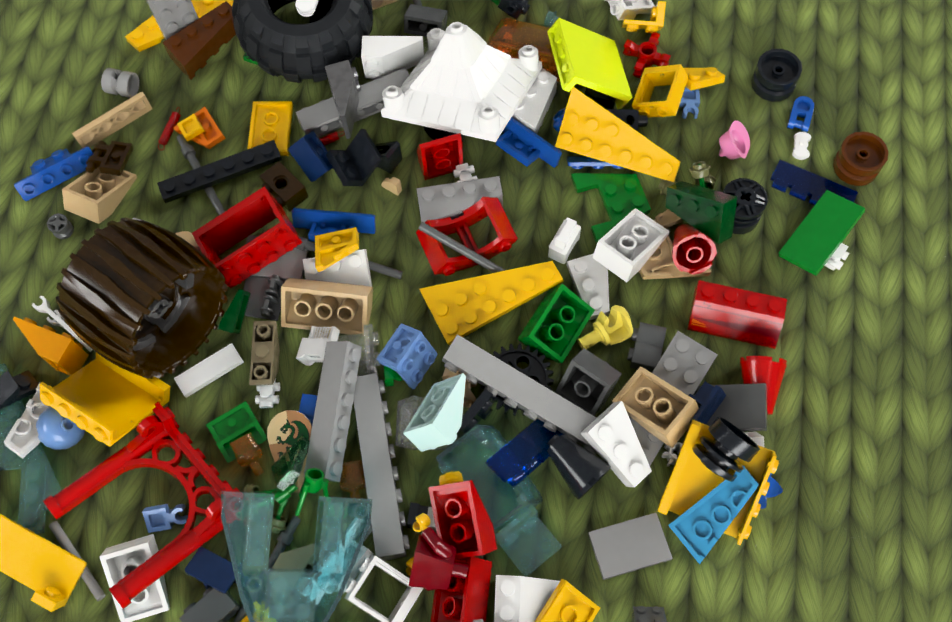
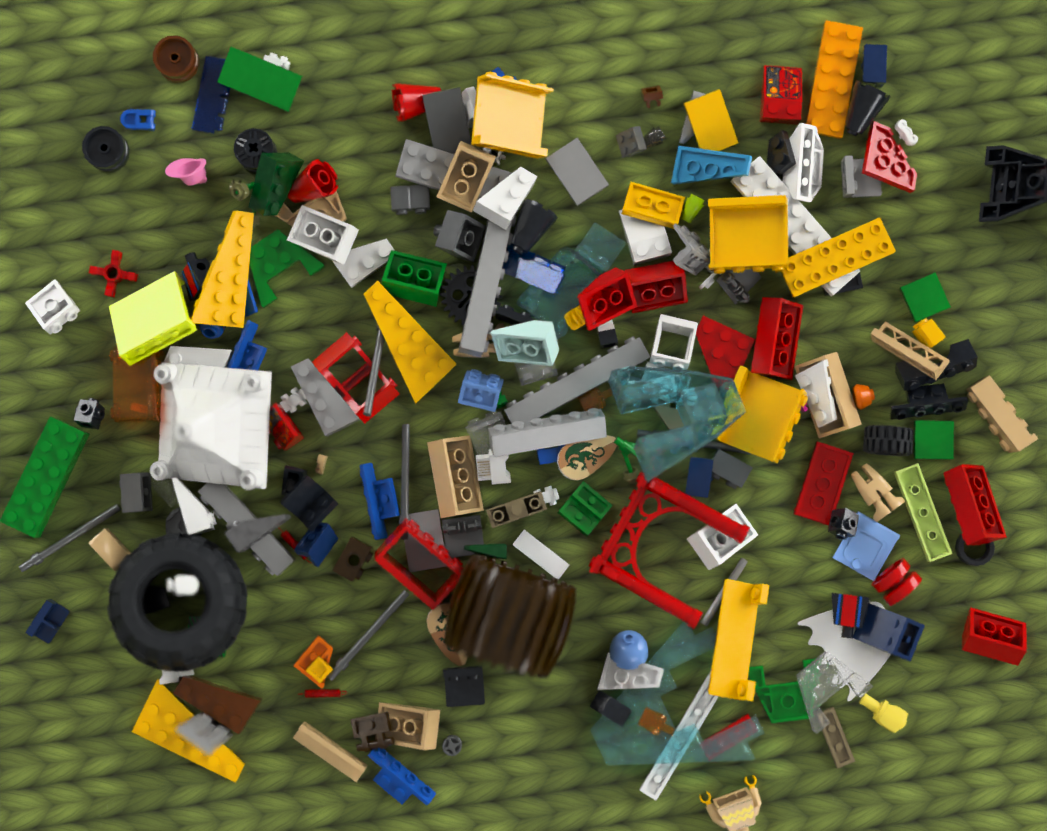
camera: 110 degrees left, 20 degrees up
(56, 349) = (568, 687): light orange slope -> none
(57, 319) = (538, 704): white flag -> none
(105, 399) = (598, 623): yellow panel -> none
(120, 82) = (287, 753): light grey wheel -> none
(161, 518) = (672, 537): medium blue plate -> none
(219, 171) = (356, 622): black plate -> none
(248, 453) = (600, 491): clear orange piece -> none
(271, 122) = (293, 598): yellow tile -> none
(289, 465) = (602, 448): clear green wing -> none
(312, 483) = (611, 423): green plant -> none
(335, 246) = (403, 485): yellow wing -> none
(349, 270) = (418, 478): white wing -> none
(433, 559) = (642, 310): dark red torso -> none
(550, 18) = (96, 374): clear light blue plate -> none
(564, 240) = (333, 293): white piece -> none
(609, 329) = (405, 234): light yellow piece -> none
(651, 77) = (142, 264): yellow window -> none
(656, 20) = (82, 276): yellow bracket -> none
(690, 101) = (151, 223): medium blue plate -> none
(703, 77) = (125, 221): yellow wing -> none
(708, 400) = (449, 139): dark blue panel -> none
(710, 517) = (536, 114): dark azure wing -> none
(722, 452) = (492, 112): black wheel -> none
(737, 314) = (358, 133): red slope -> none
(800, 145) = (171, 113): white piece -> none

